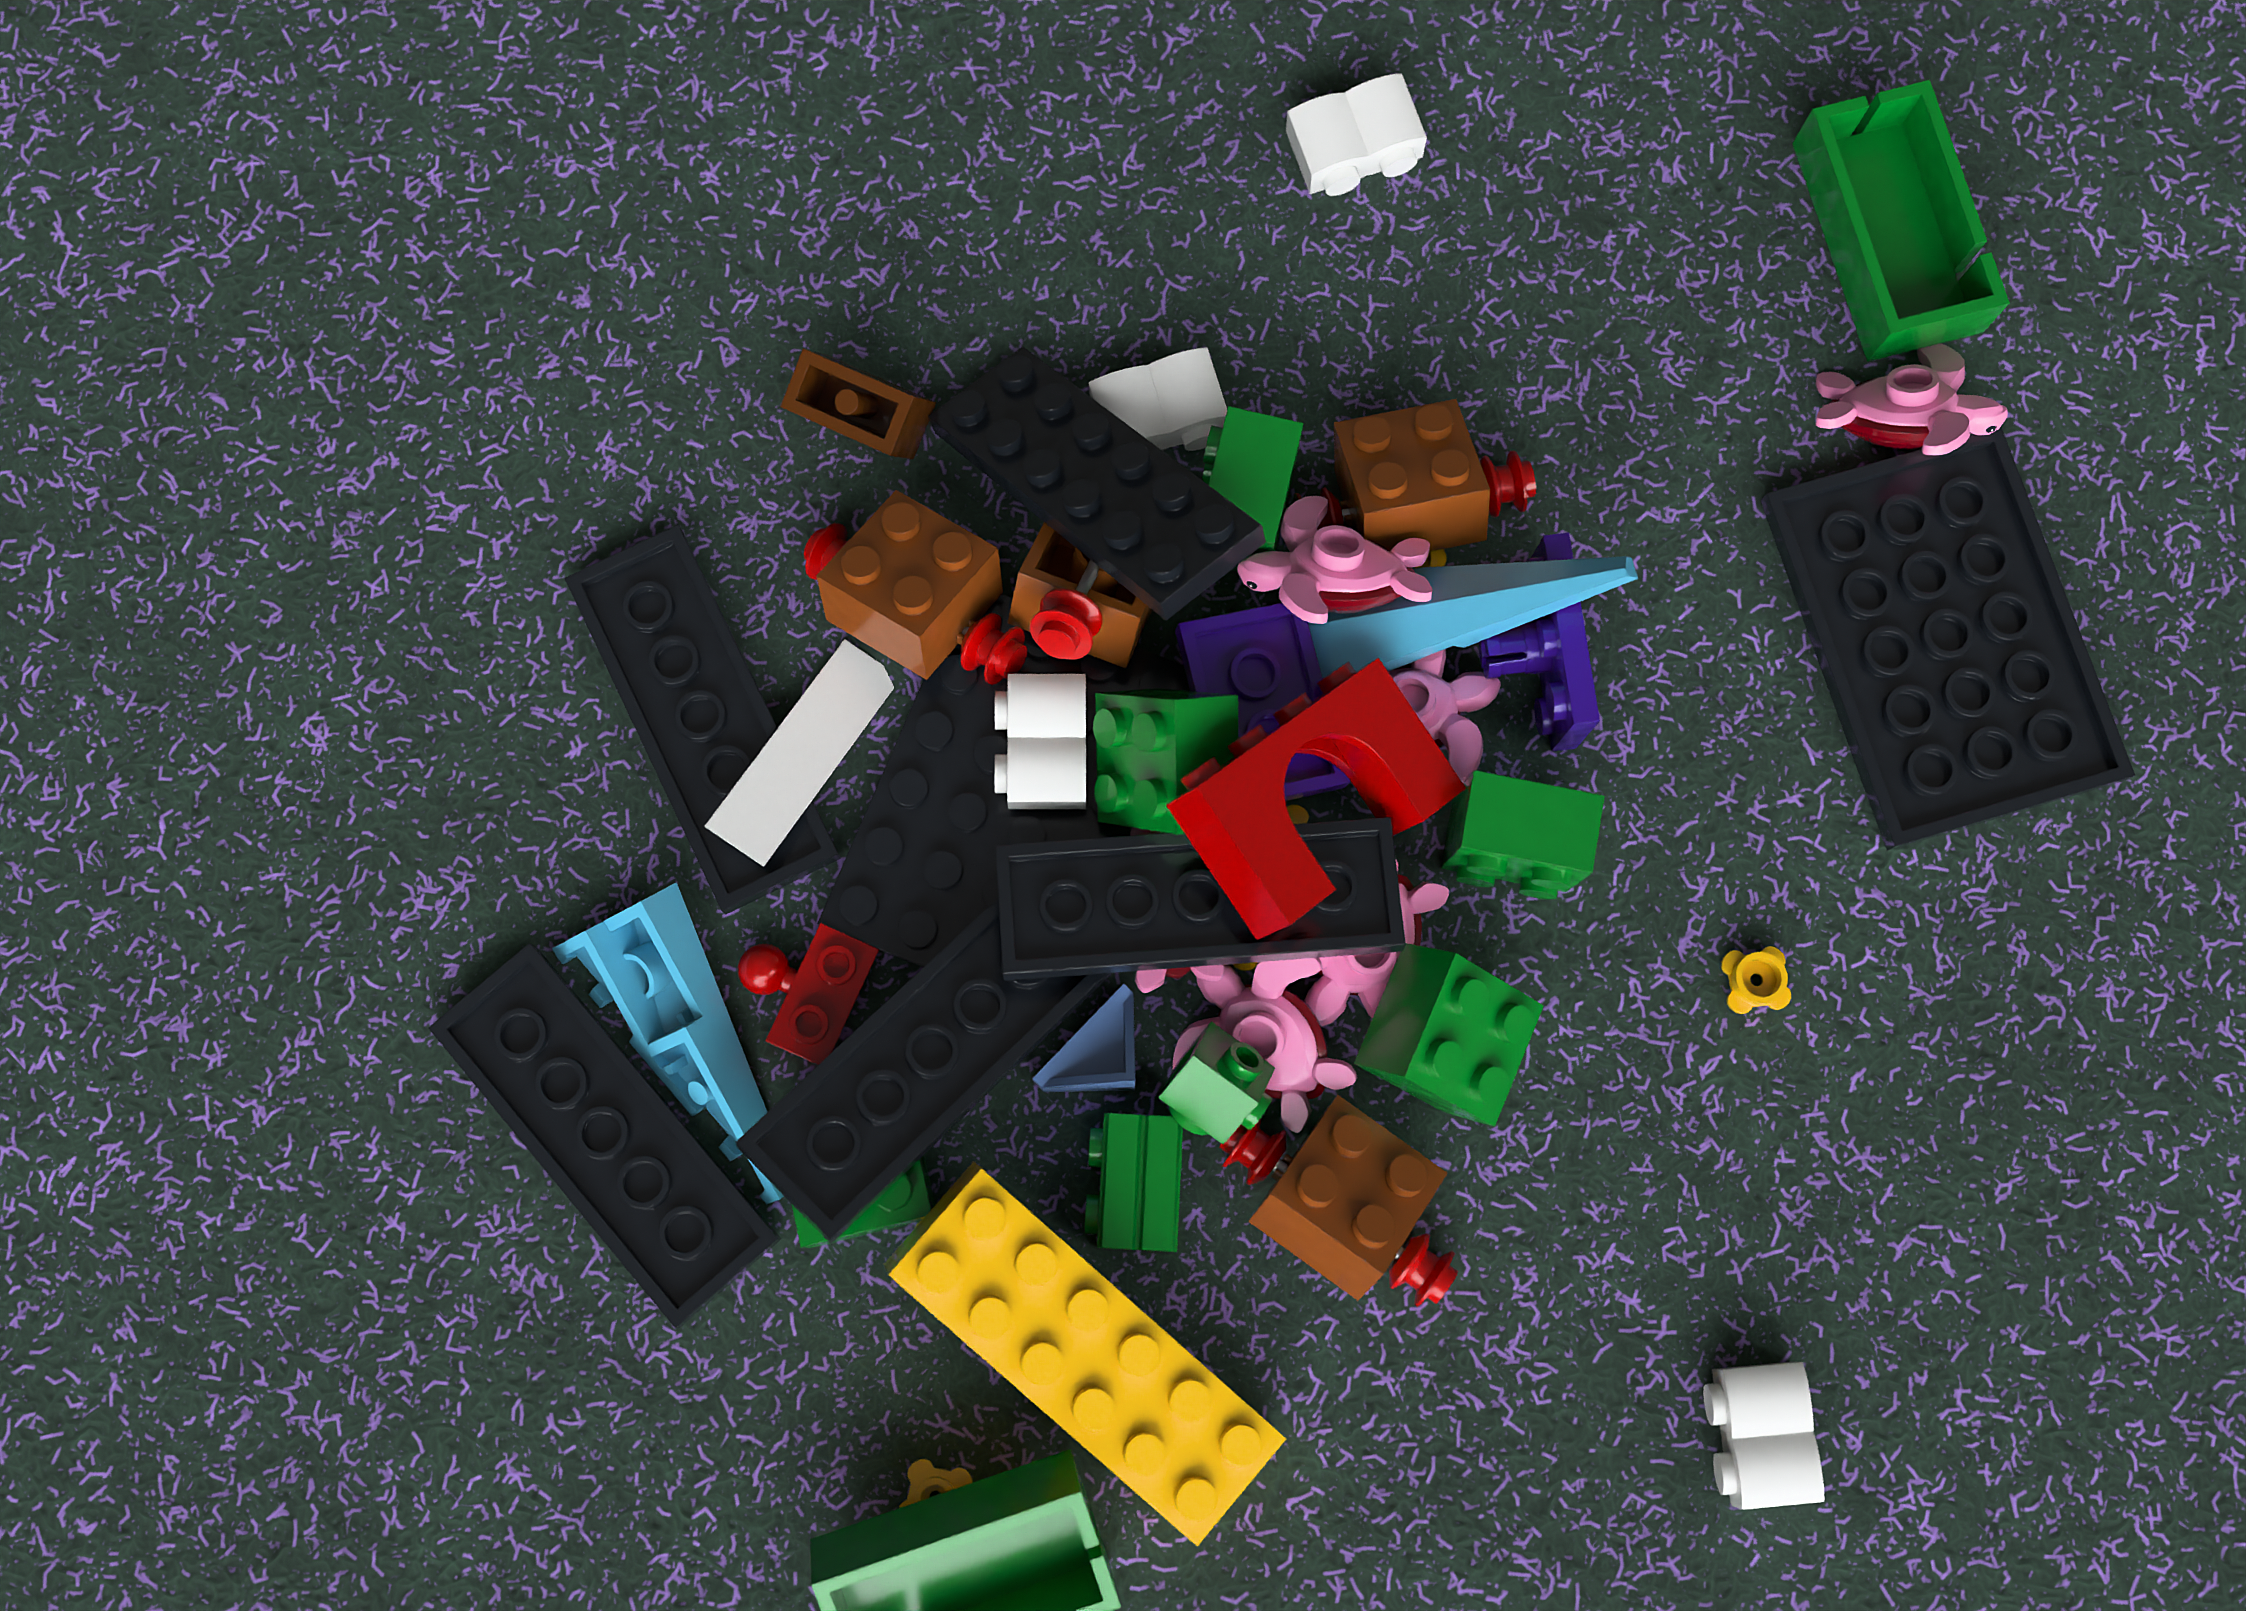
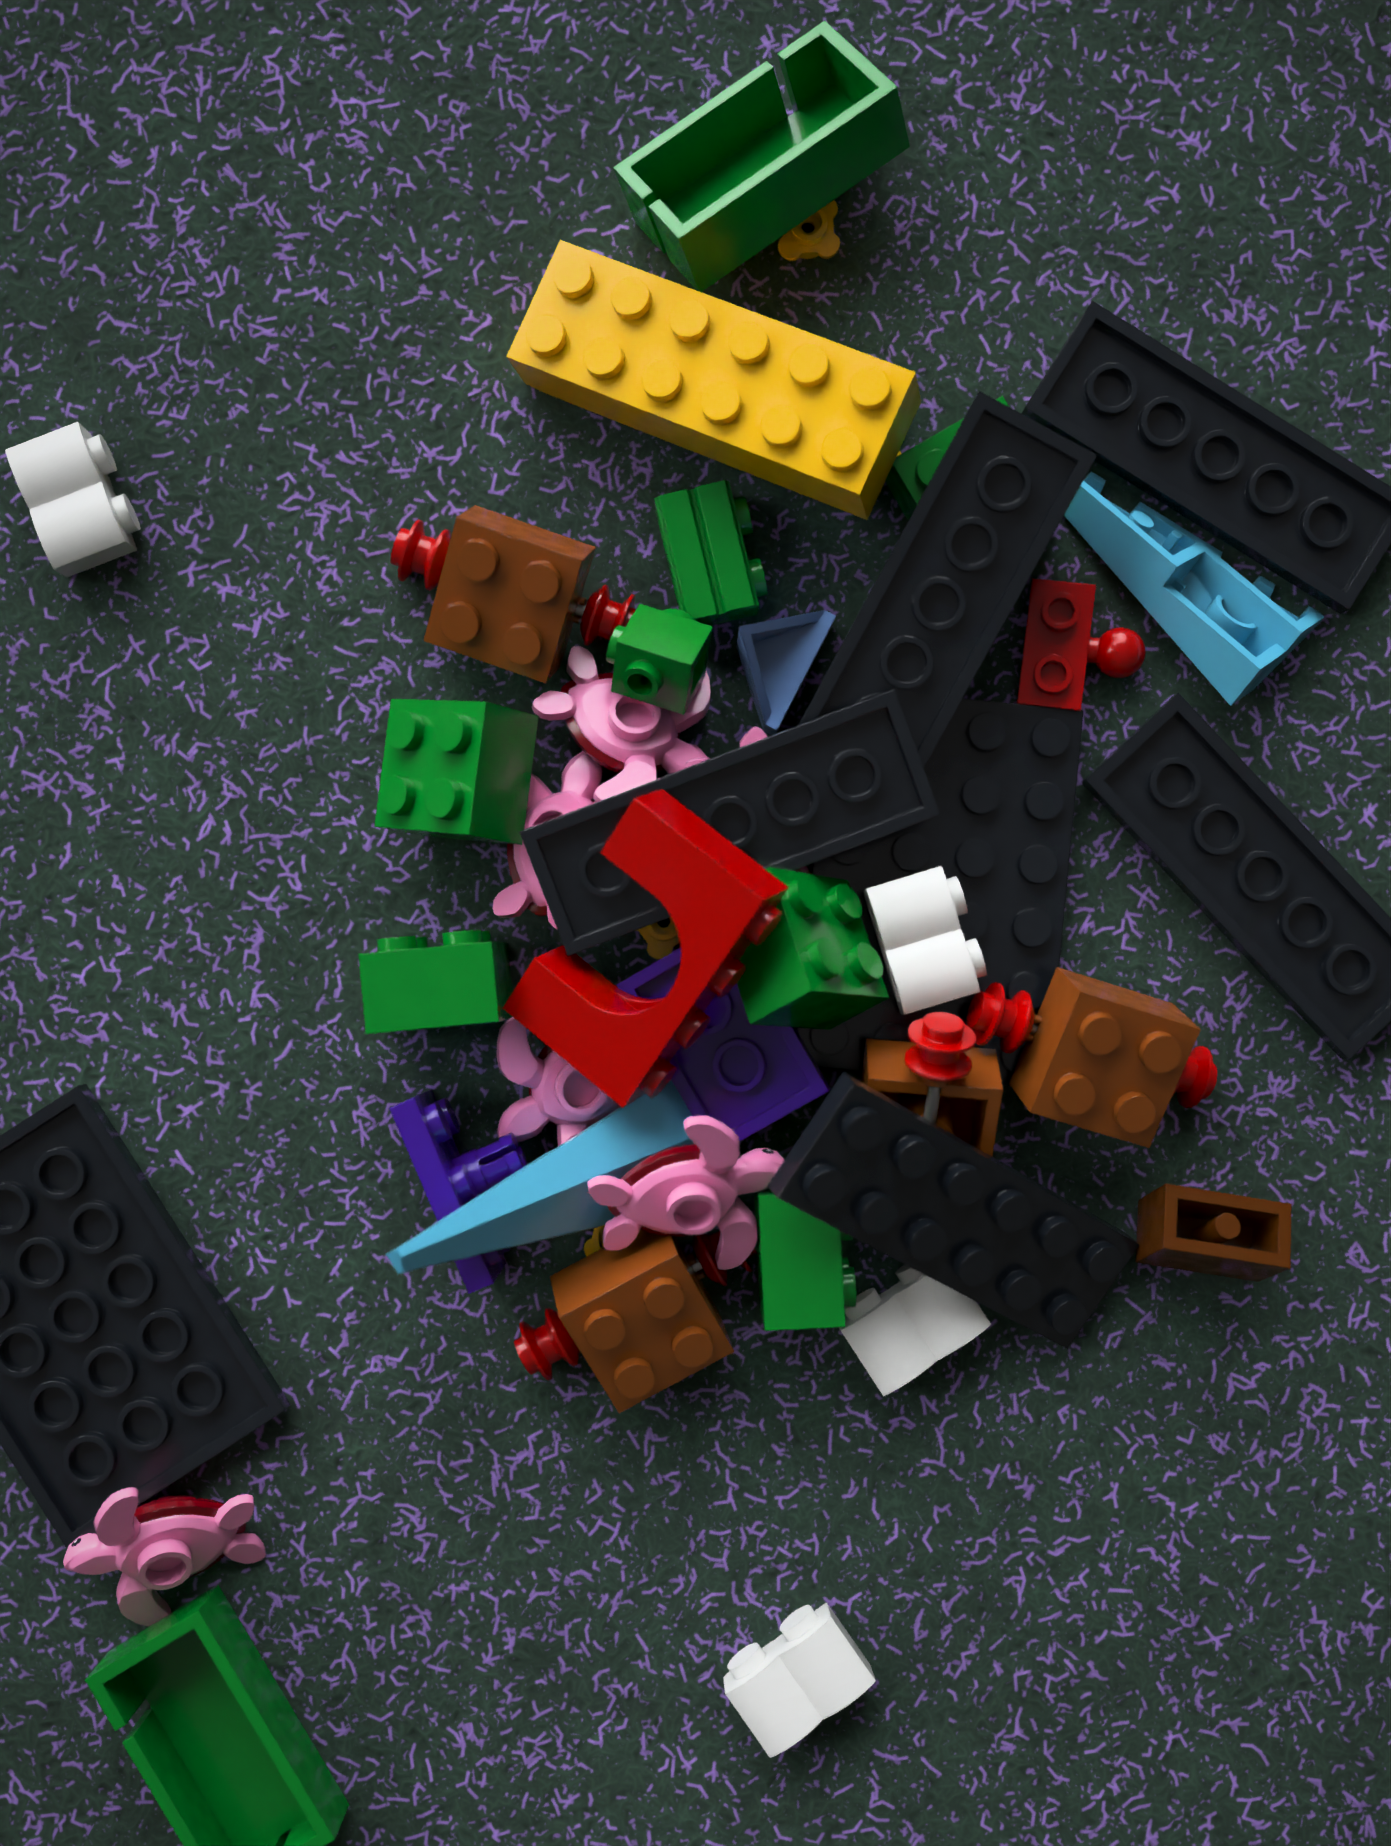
camera: 160 degrees right, 10 degrees up
(802, 753) = (1151, 866): white sticker -> none
(1769, 966) = (163, 915): yellow plate -> none

